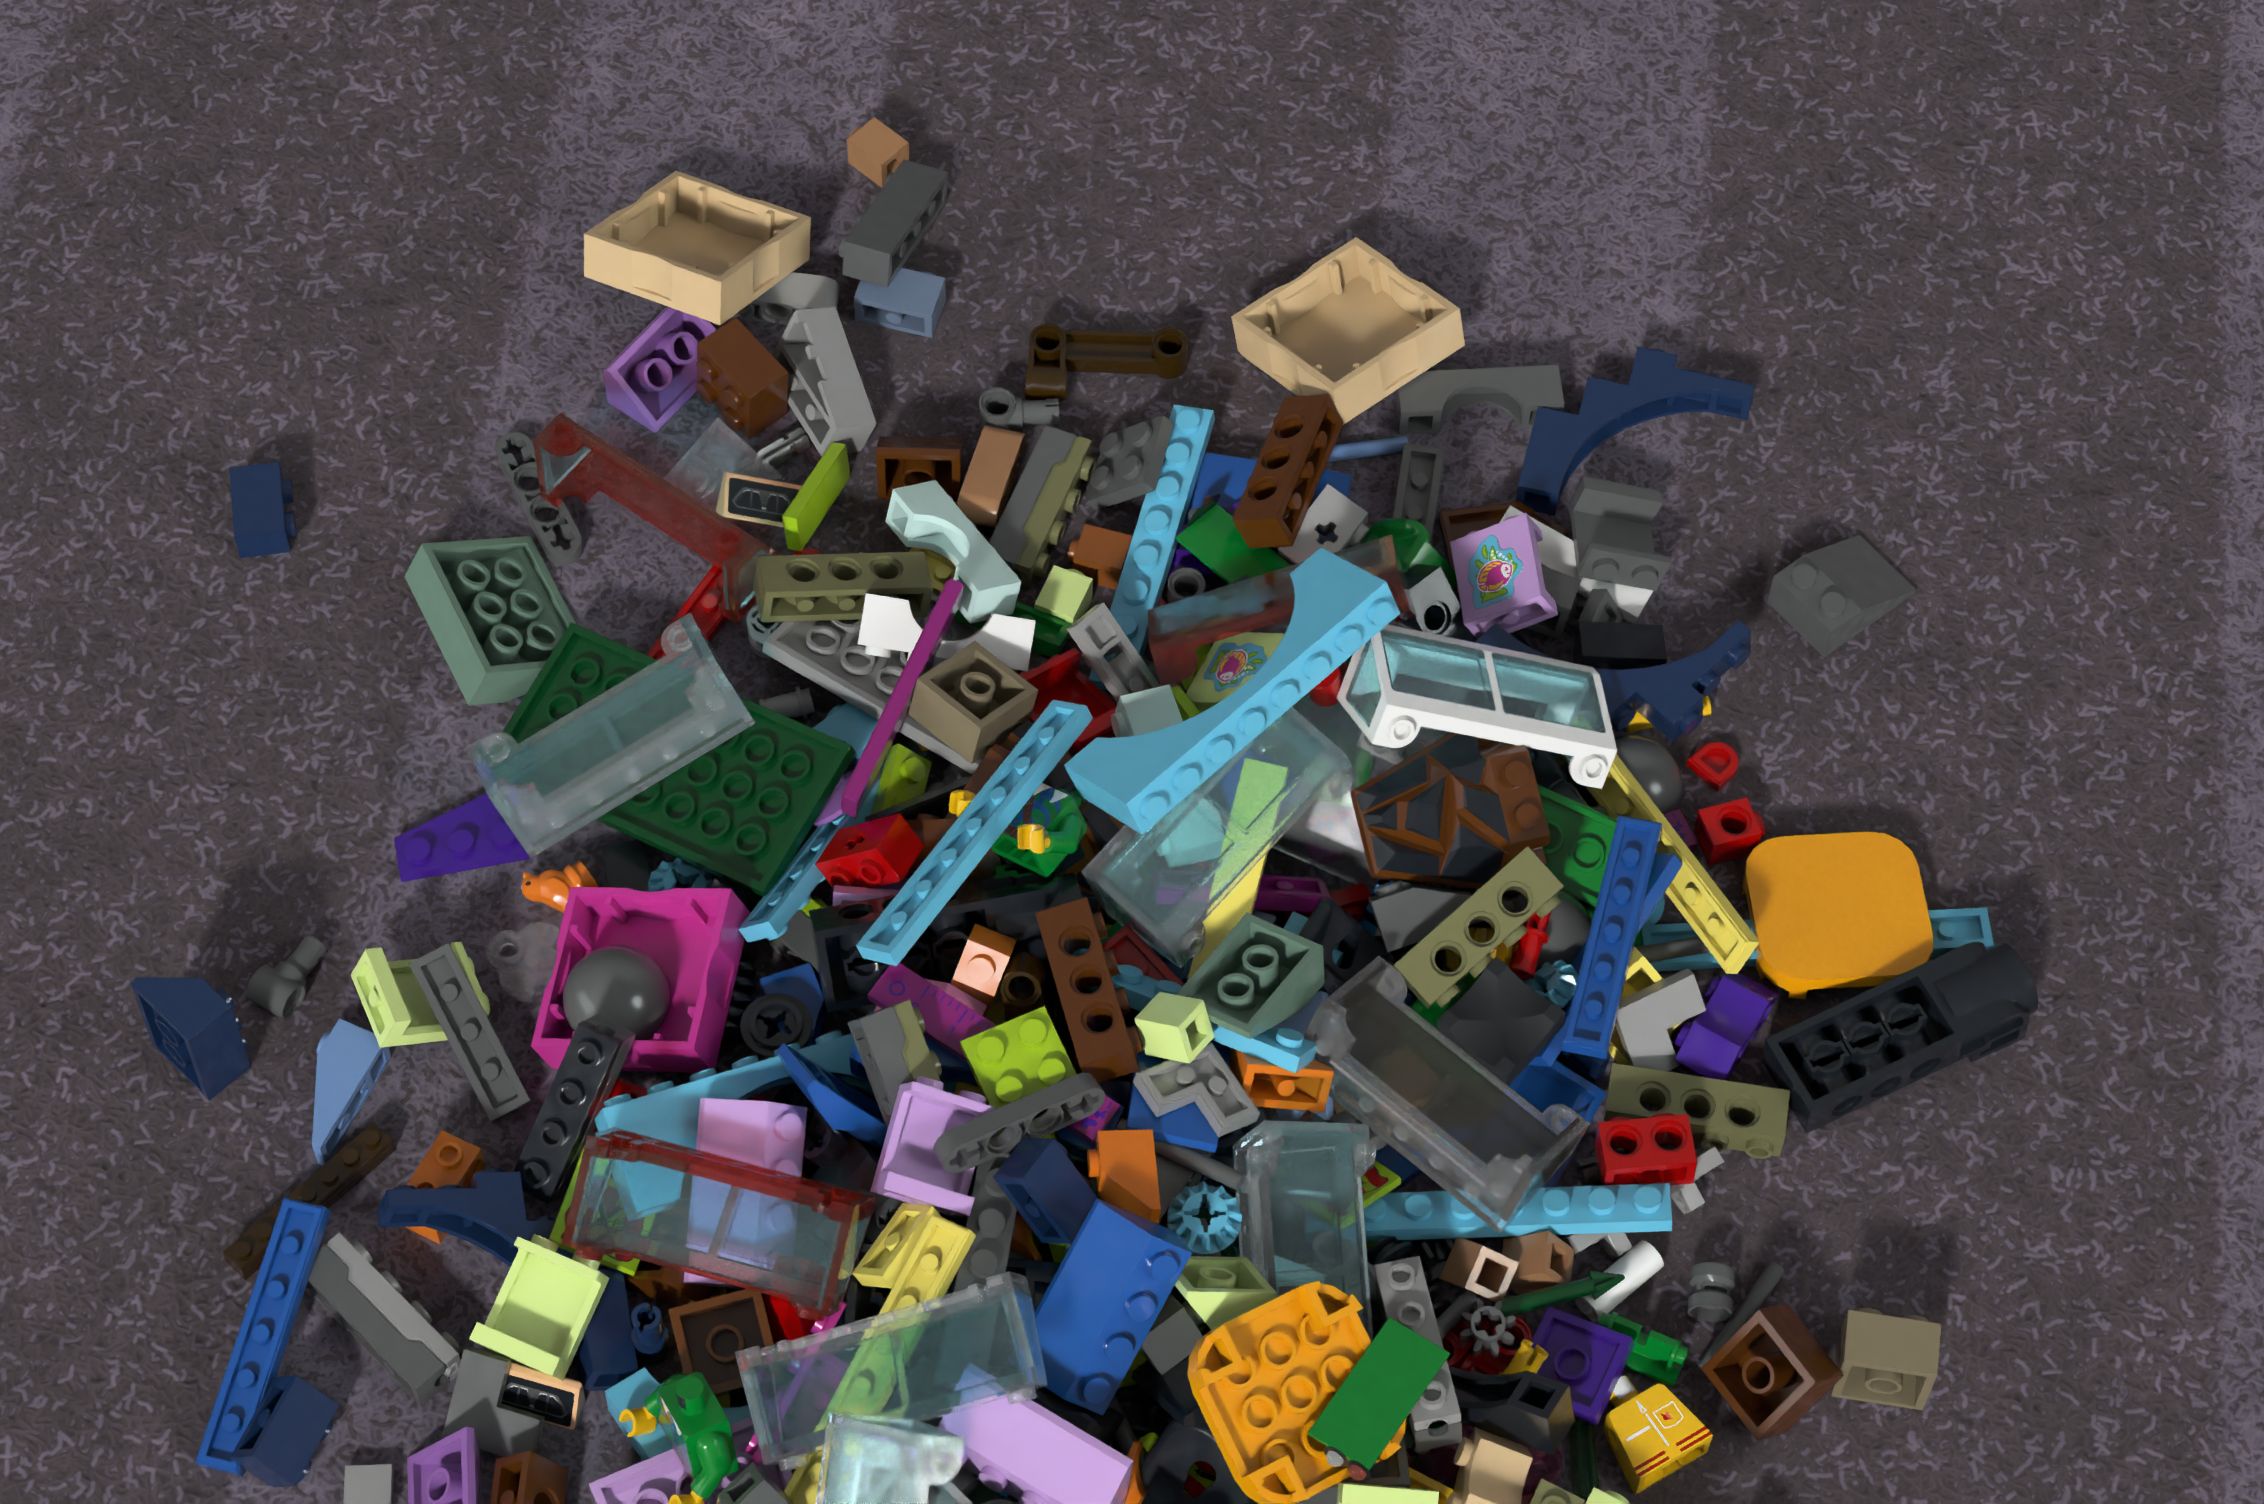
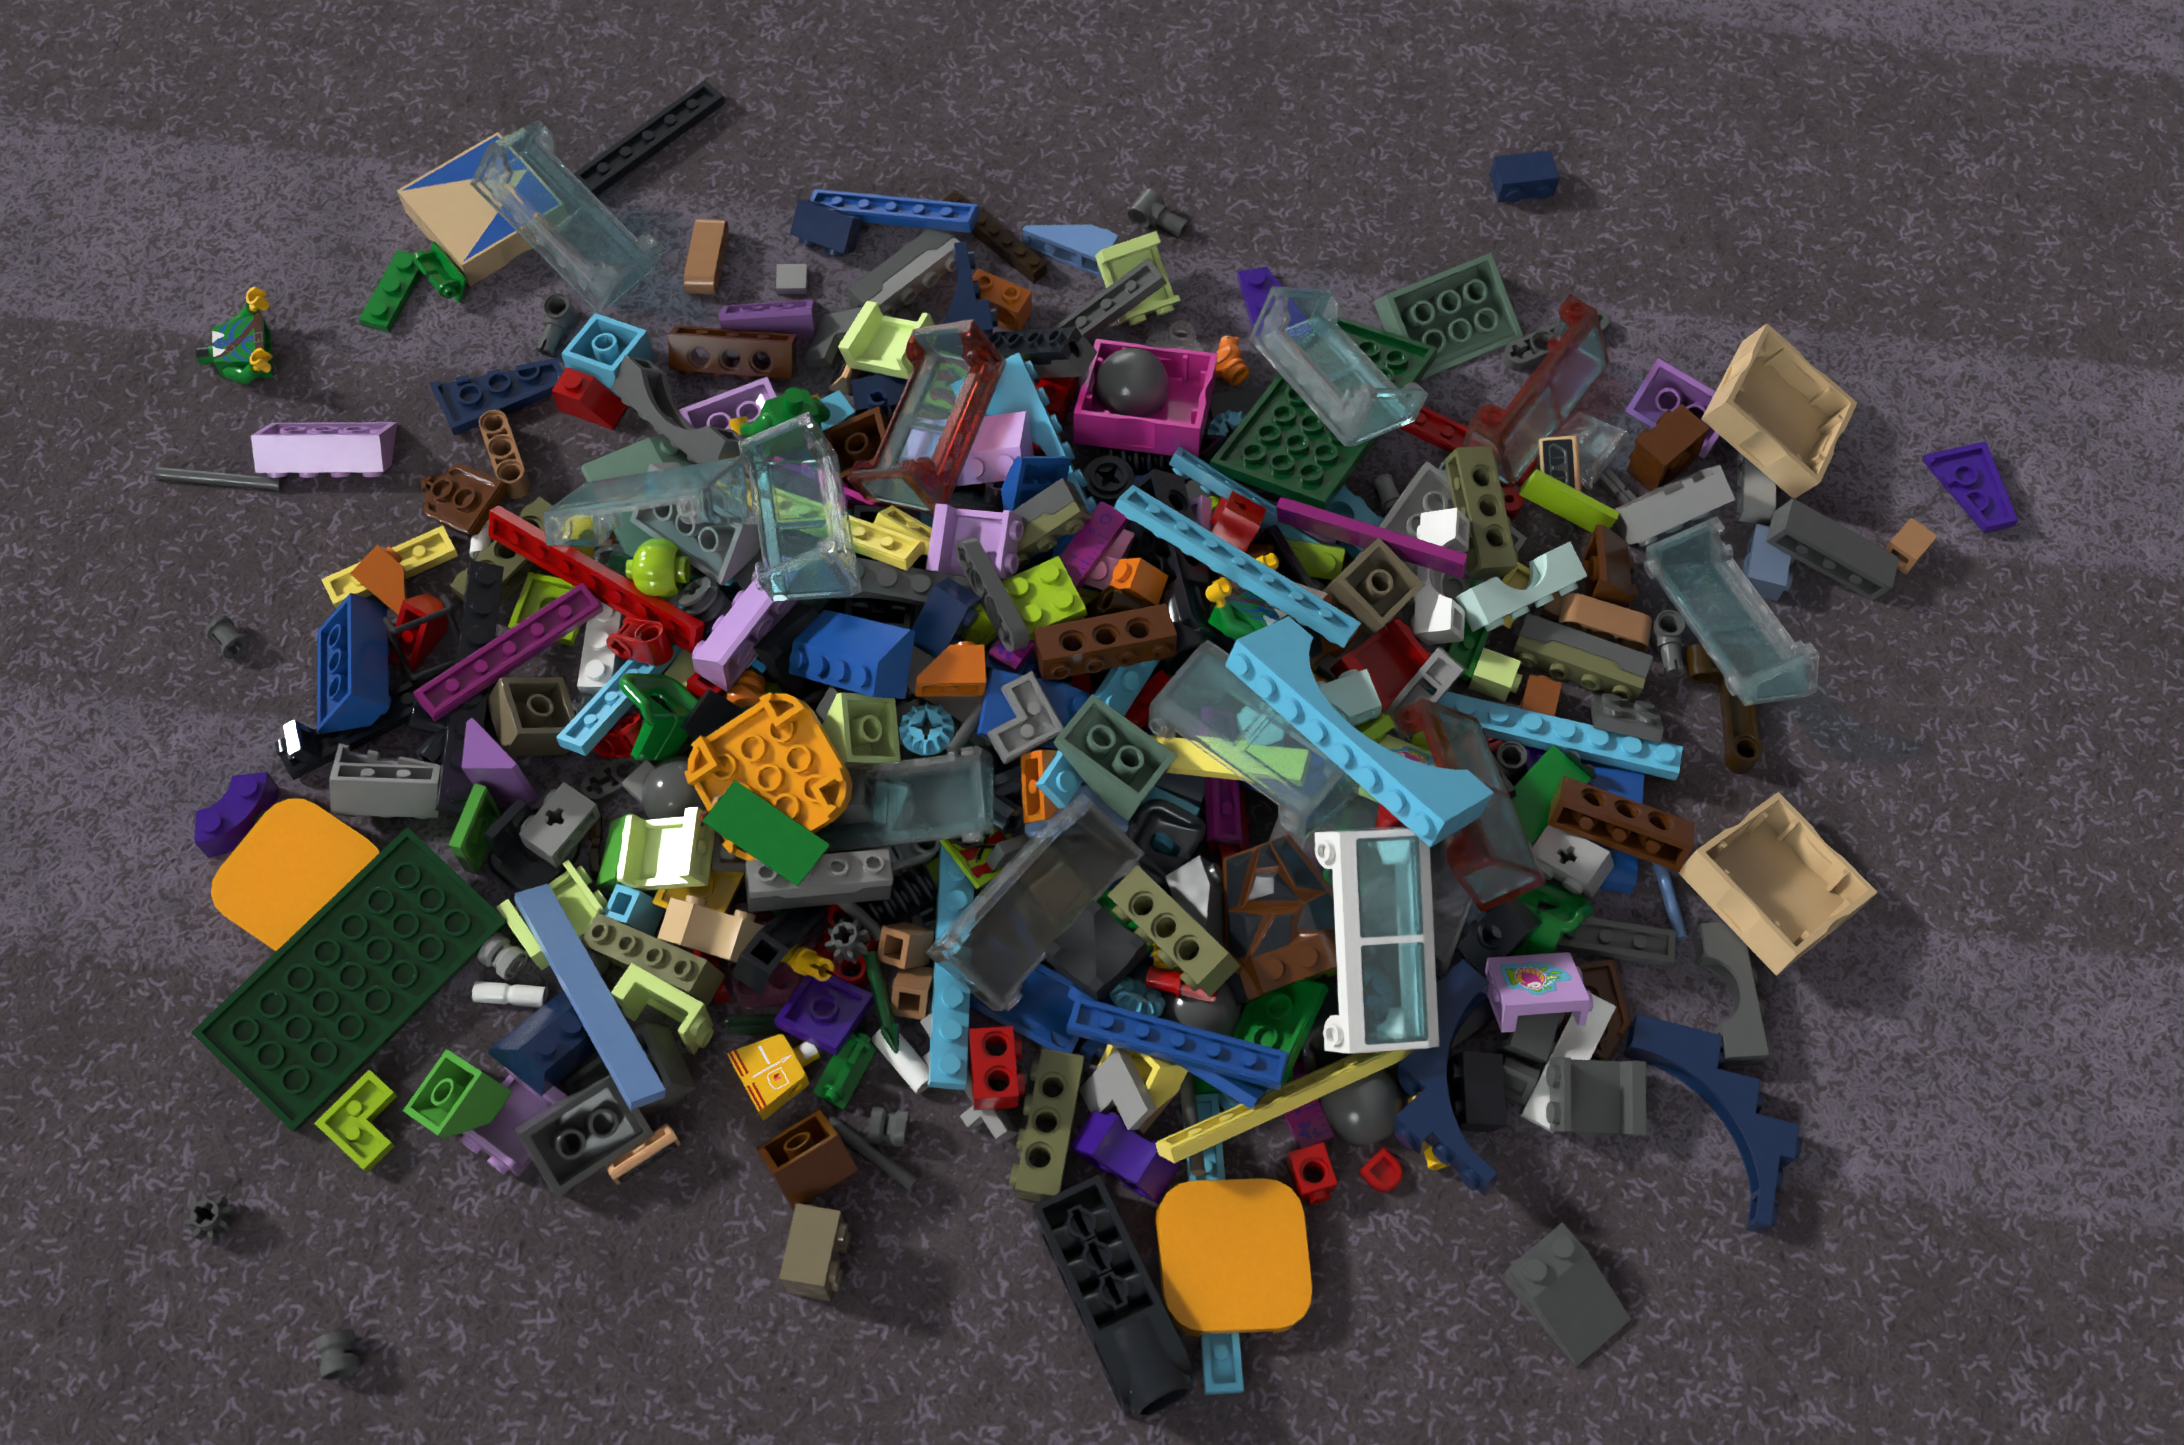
camera: 90 degrees right, 5 degrees up
(194, 1030) = (1096, 151): dark blue slope -> none
(786, 74) = (1975, 484): none -> dark purple wing
(1000, 333) = (1731, 617): none -> windscreen
(1174, 1027) = (1068, 695): yellowish green brick -> none

